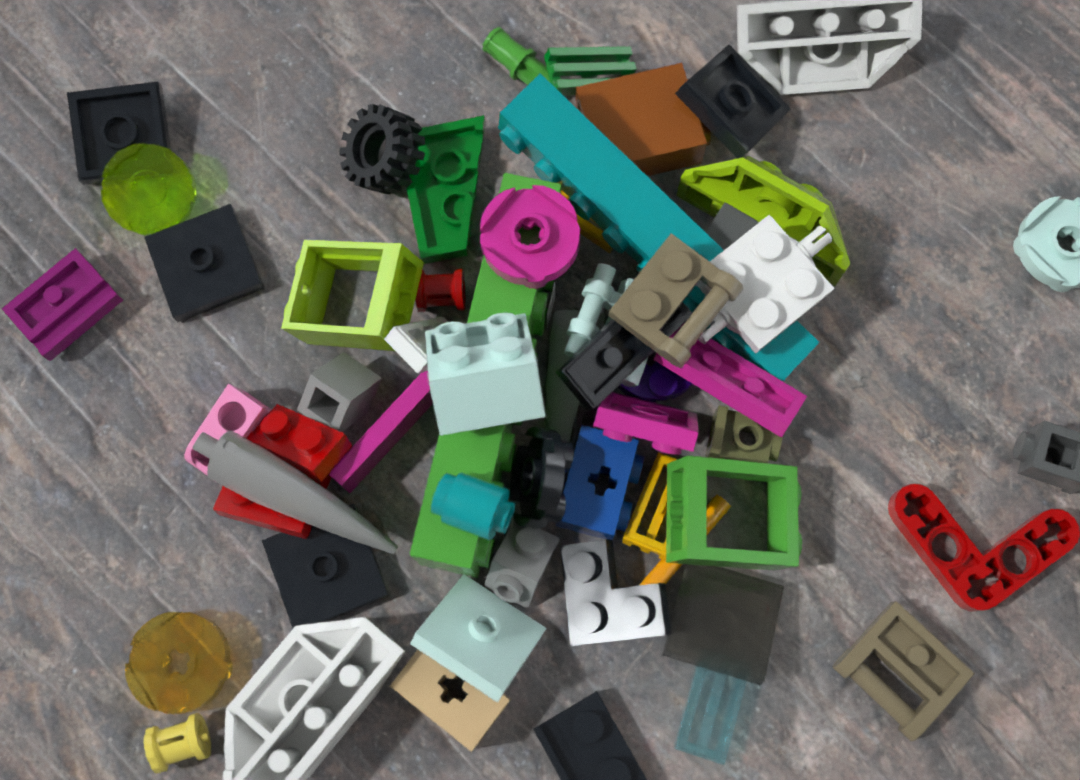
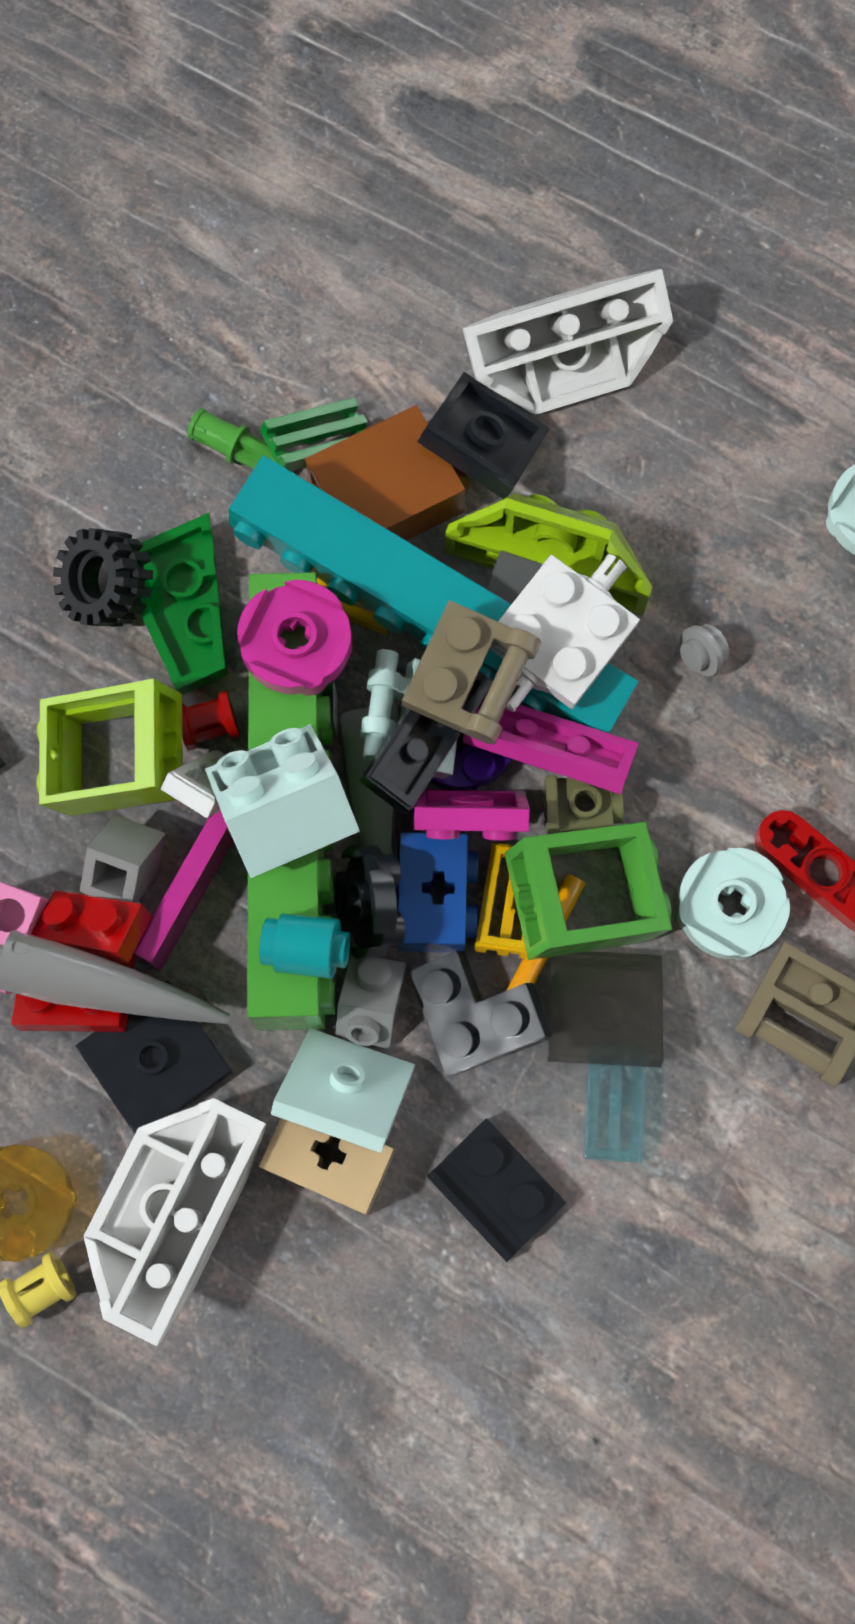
camera: 15 degrees left, 0 degrees up
(882, 327) = (703, 649): none -> light grey plate
(885, 556) = (763, 896): none -> light aqua plate

